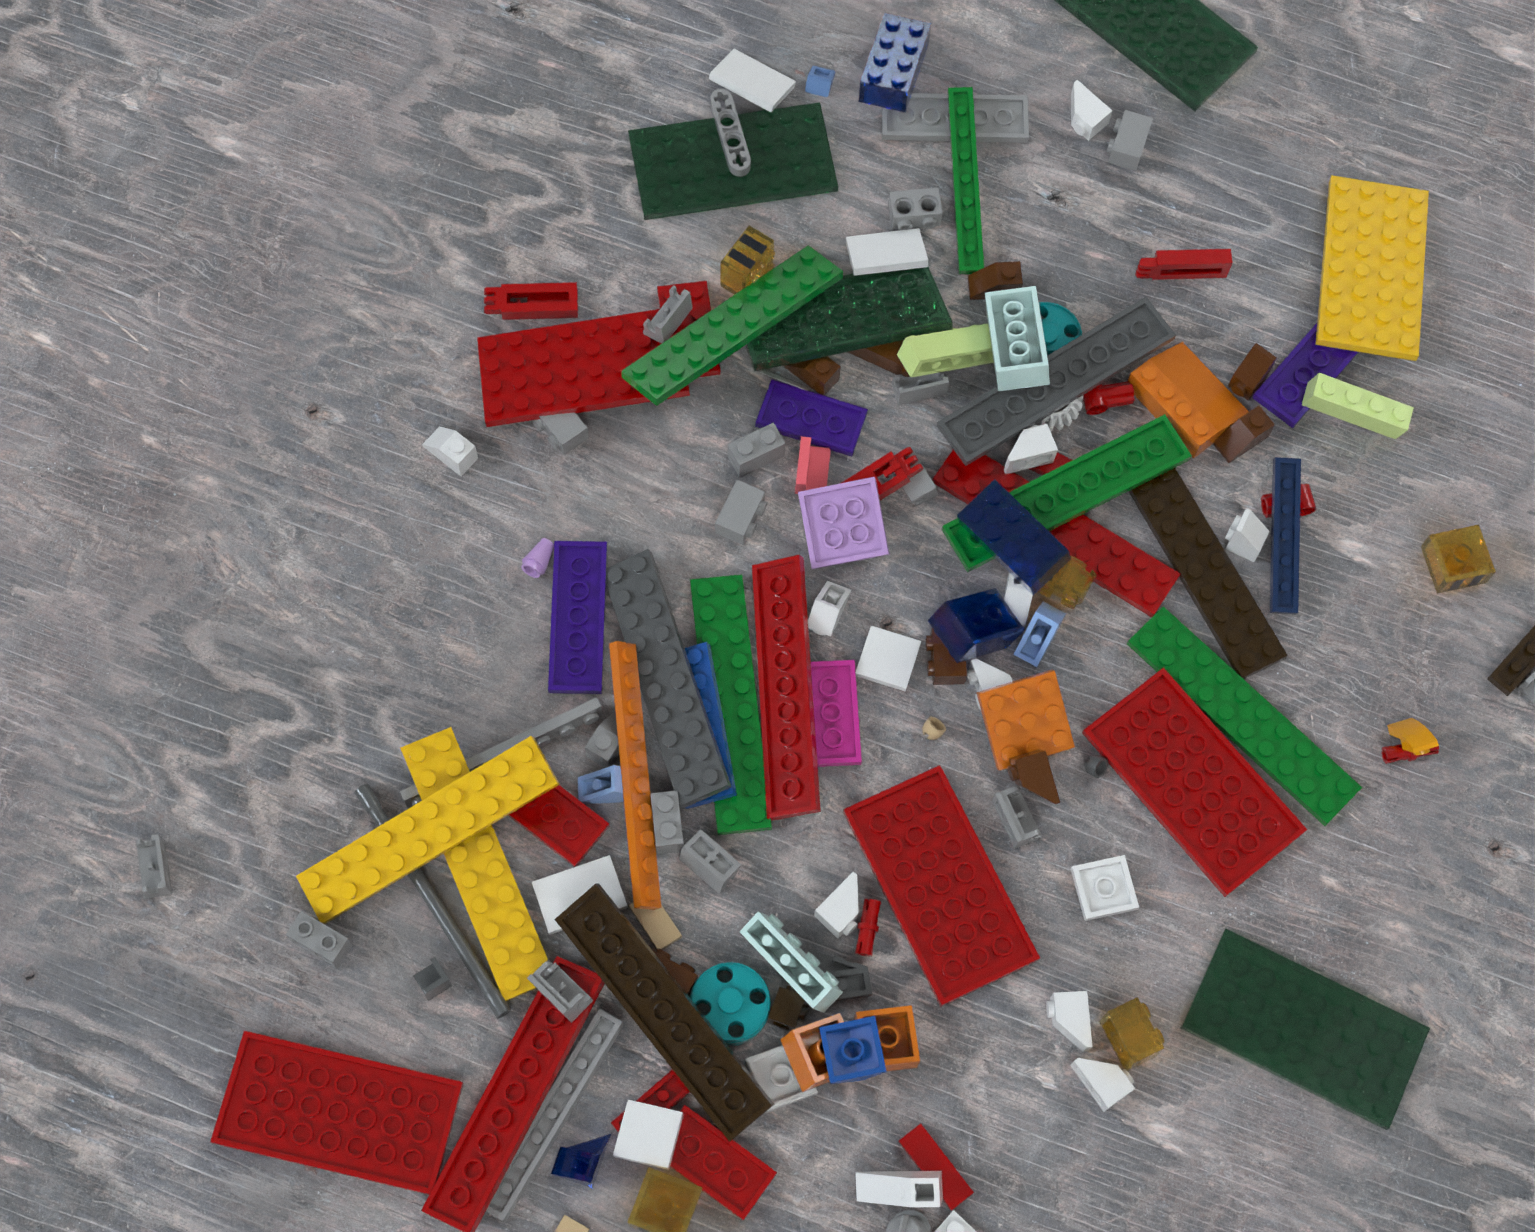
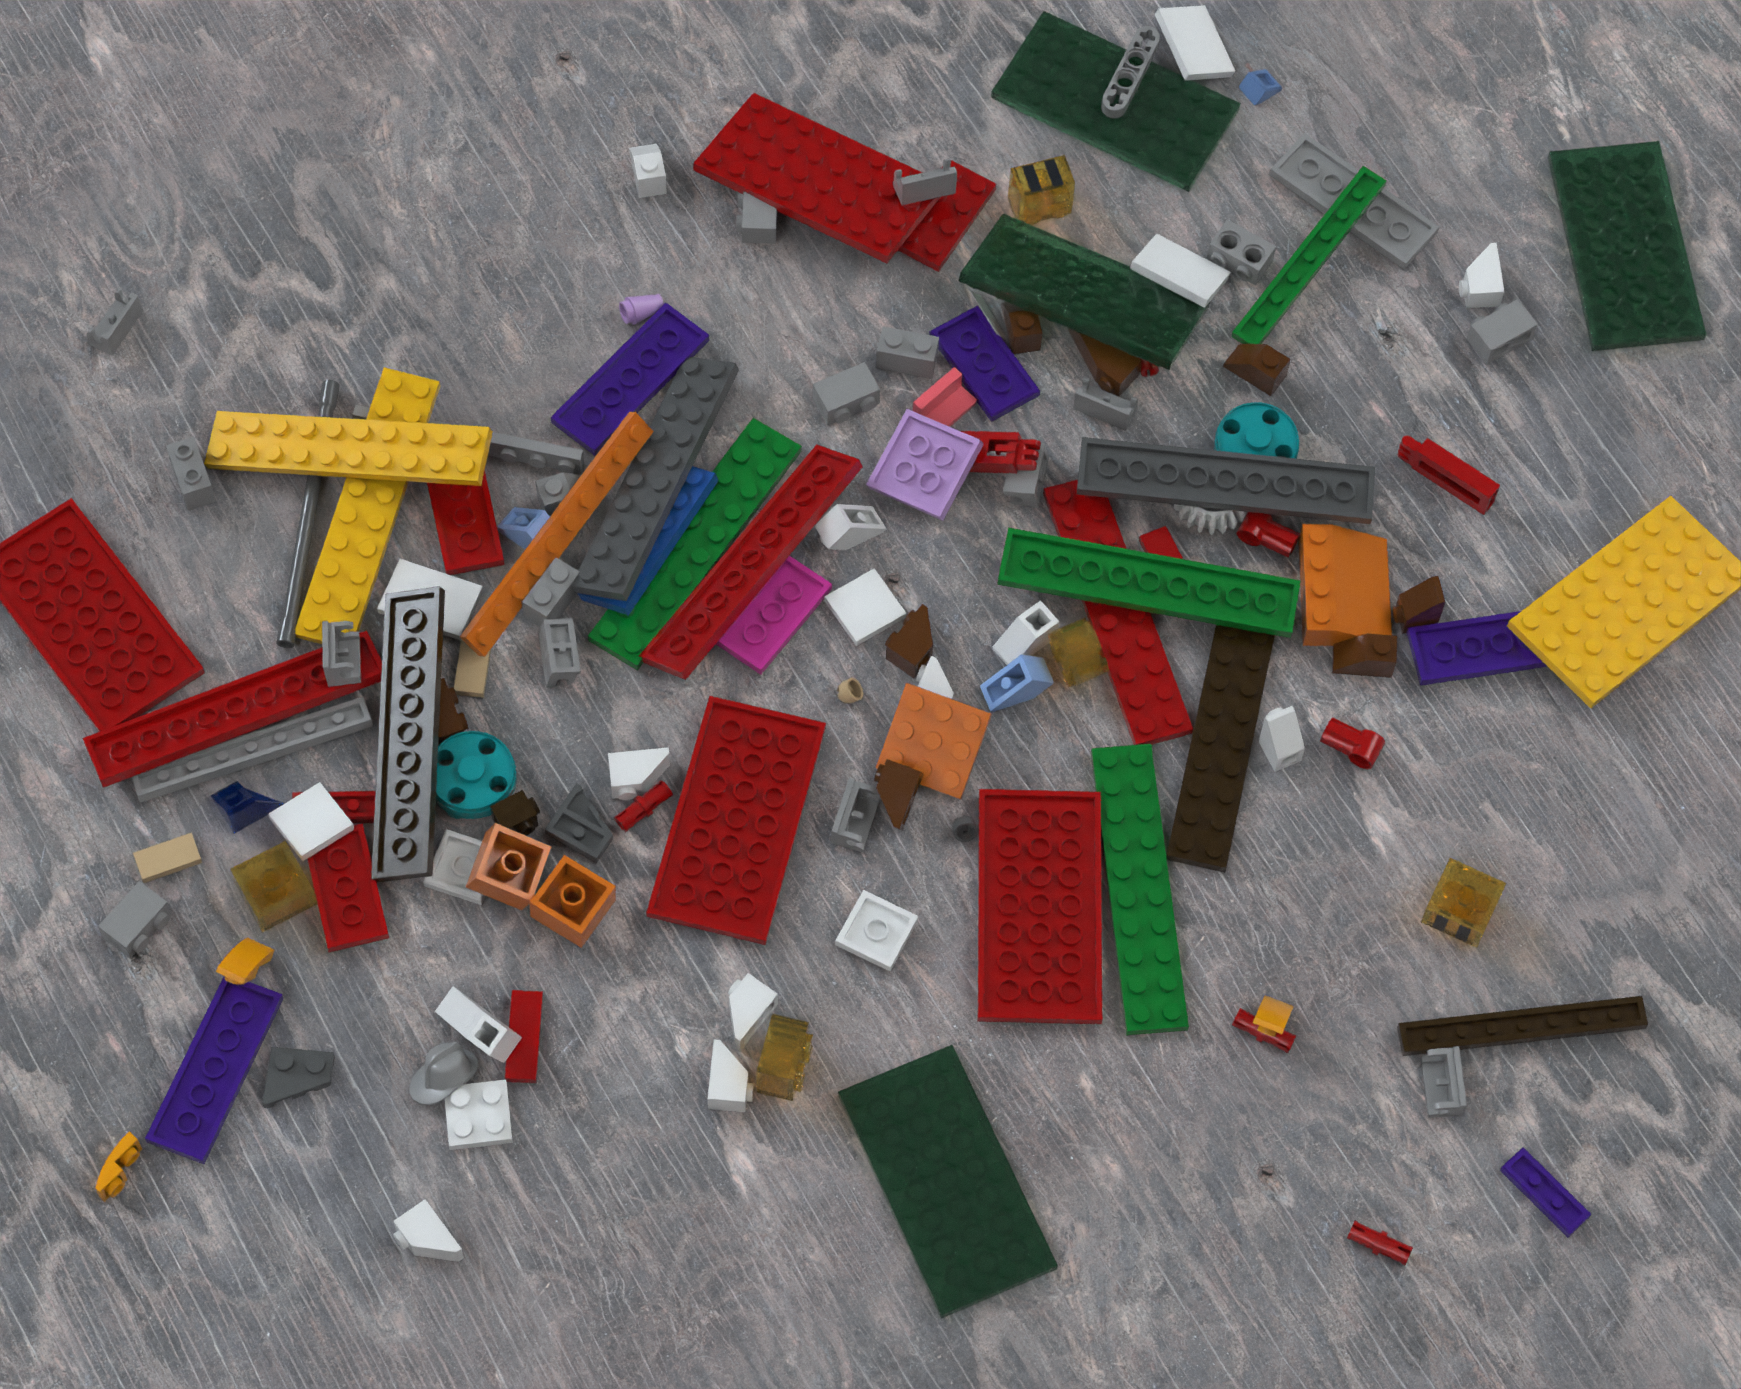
camera: 40 degrees right, 5 degrees down
(432, 980) = (252, 574): dark grey panel -> none
(543, 301) = (840, 105): red hinge -> none
(731, 325) = (978, 230): green plate -> none
(791, 961) = (549, 776): light aqua brick -> none
(853, 1050) = (530, 878): blue slope -> none
(894, 62) = (1337, 112): clear blue brick -> none
(946, 350) = (1153, 387): yellowish green brick -> none
(976, 625) = (959, 628): clear blue brick -> none
(1014, 537) = (1054, 575): clear blue brick -> none
(1017, 338) = (1215, 415): light aqua brick -> none
(1032, 449) = (1148, 523): white slope -> none
(1285, 536) = (1316, 763): dark blue plate -> none
(1357, 406) = (1493, 705): yellowish green brick -> none

